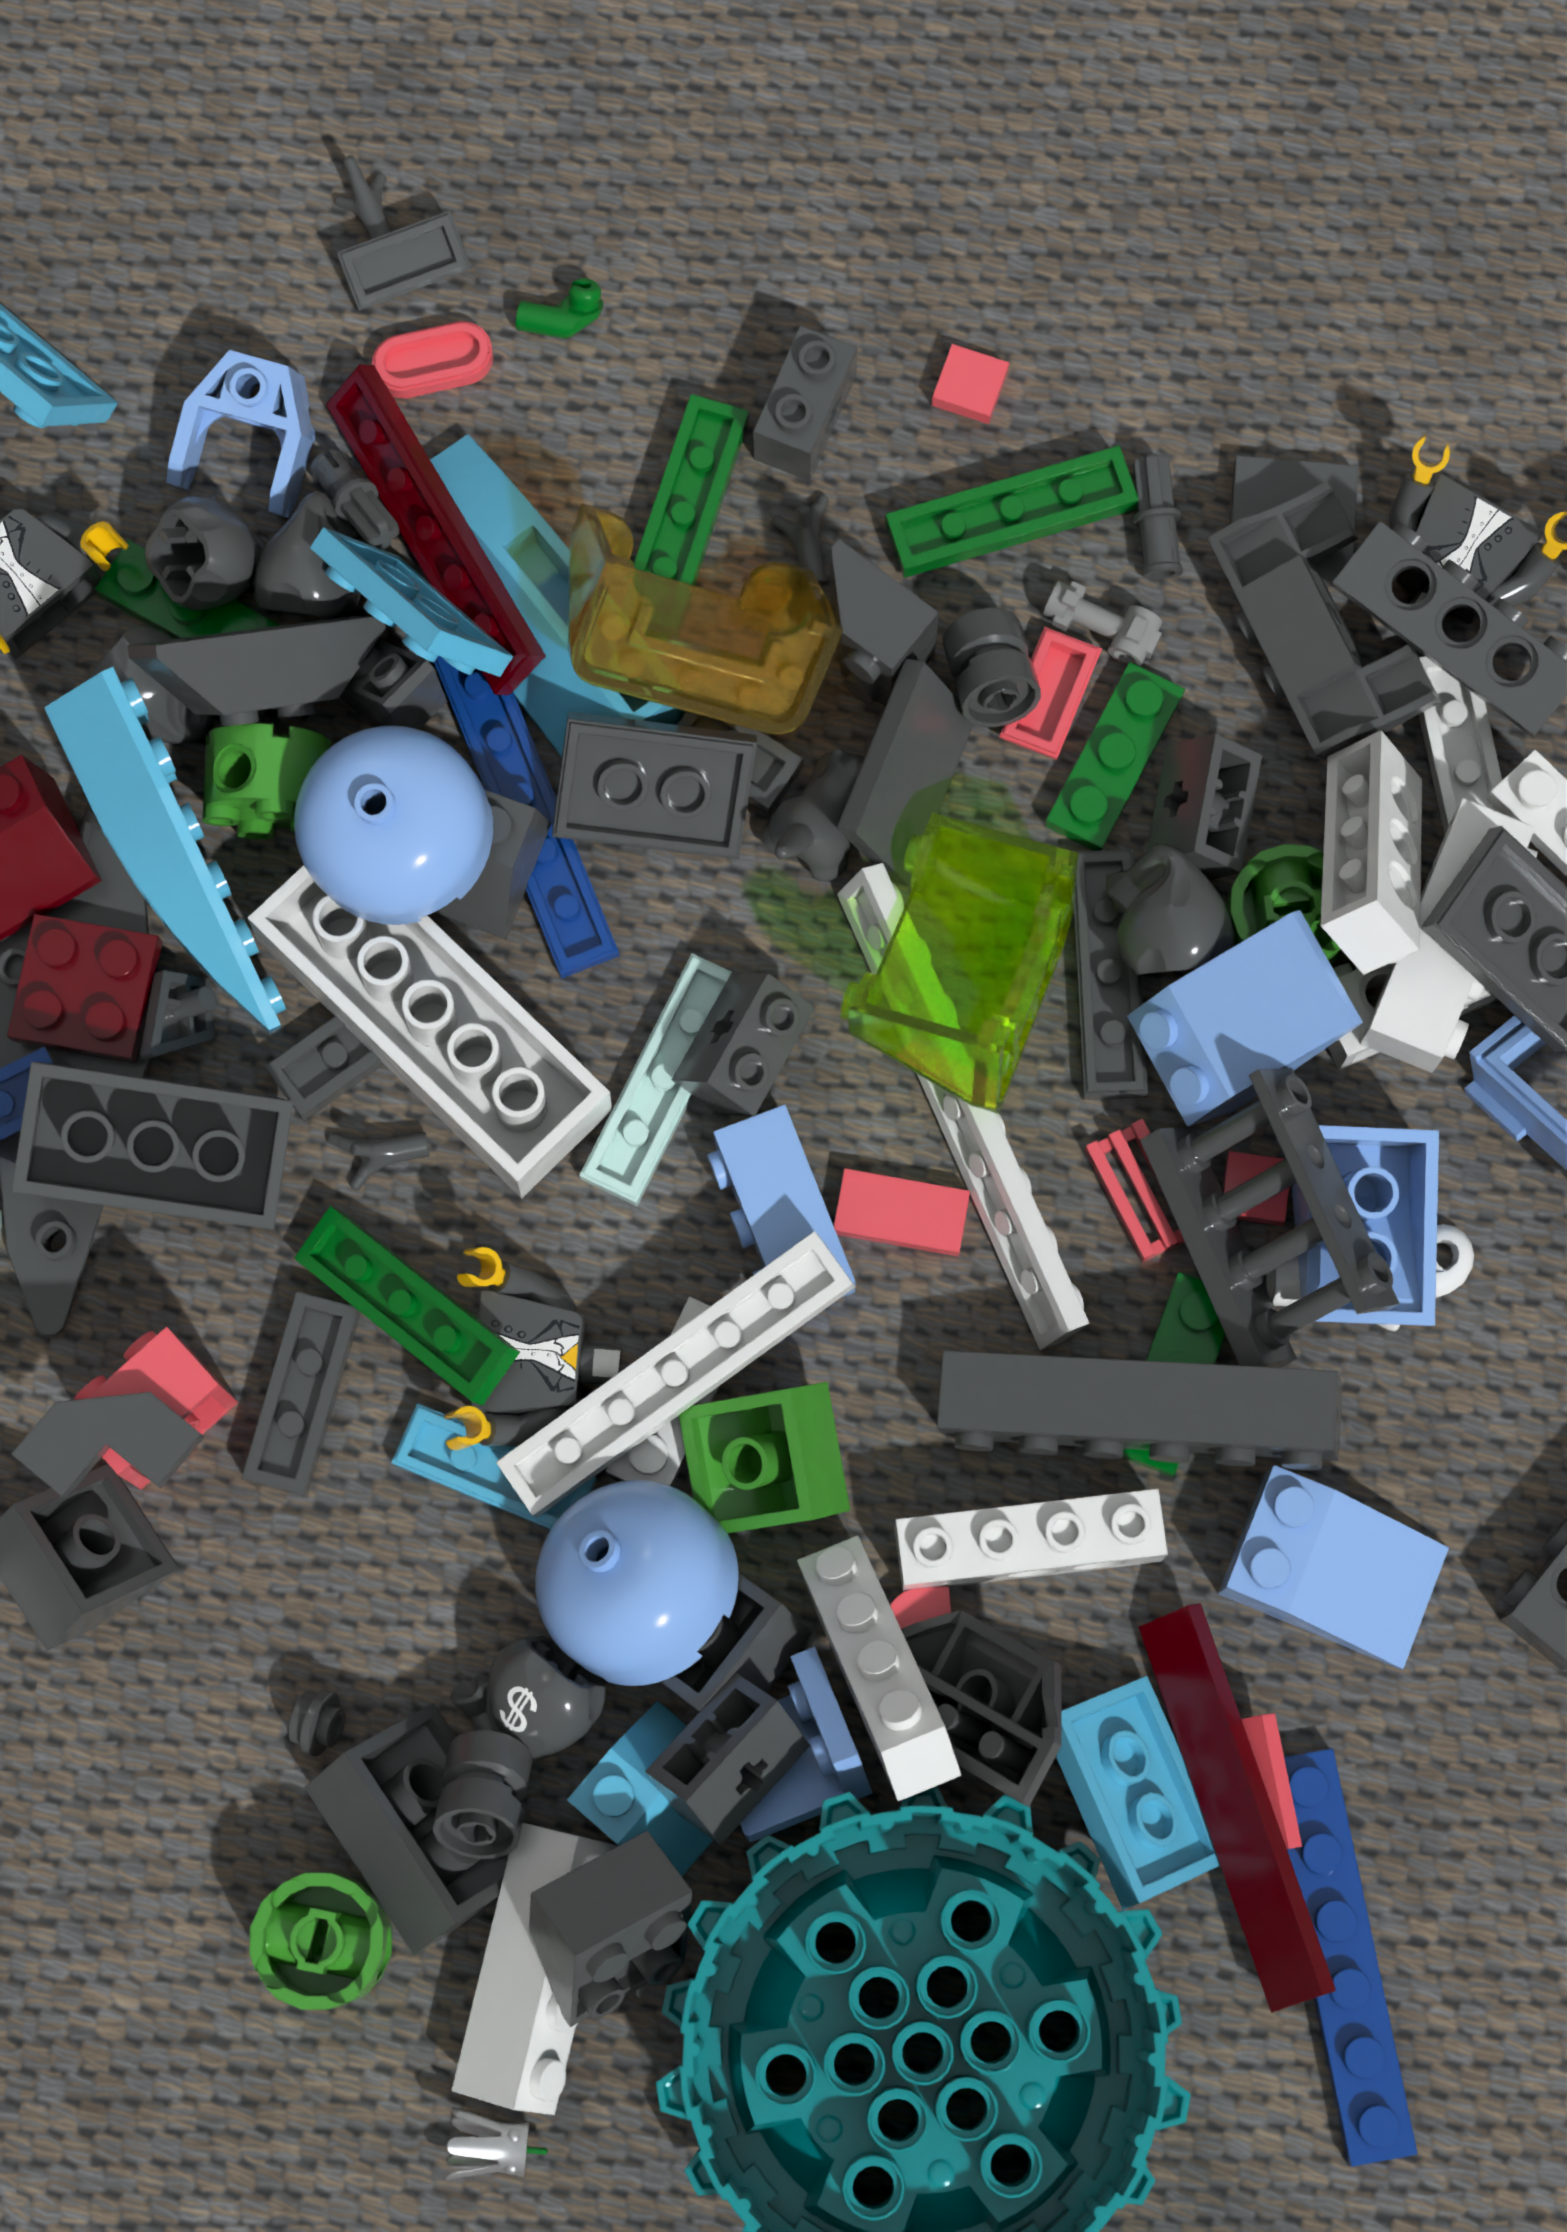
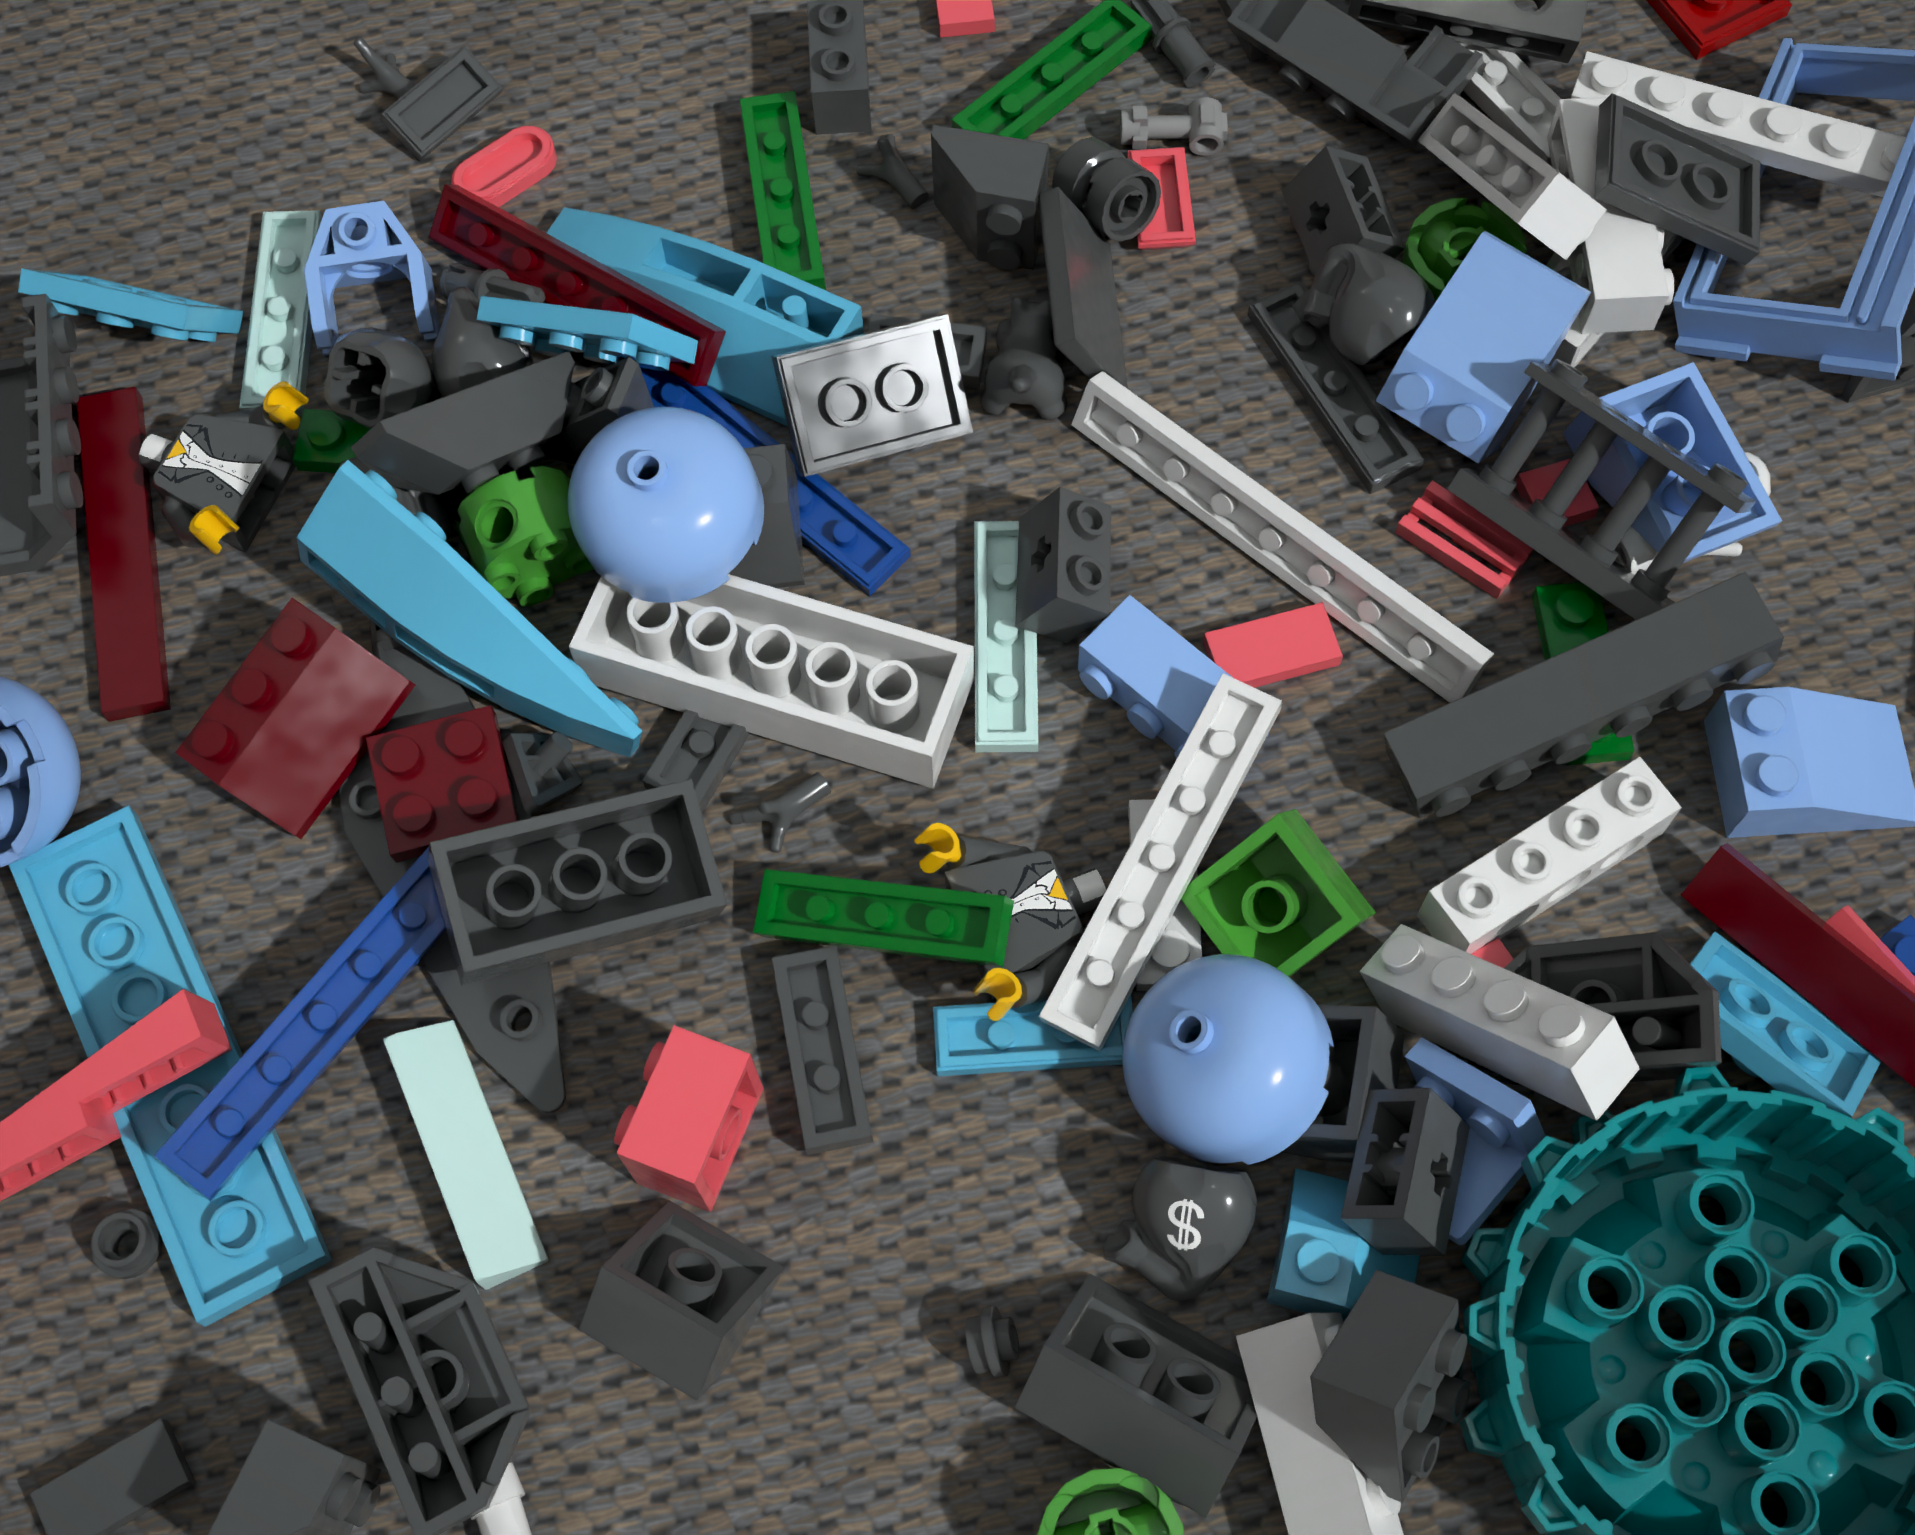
camera: 25 degrees left, 10 degrees down
(80, 1432) = (638, 1158): dark grey tile -> none
(145, 431) = (280, 307): none -> light aqua tile
(483, 1794) = (1193, 1324): dark grey wheel -> none
(566, 318) = (601, 93): green arm -> none
(694, 648) = (911, 254): clear yellow windscreen -> none
(968, 958) = (1222, 402): clear neon green windscreen -> none
(1114, 757) = (1241, 223): green plate -> none

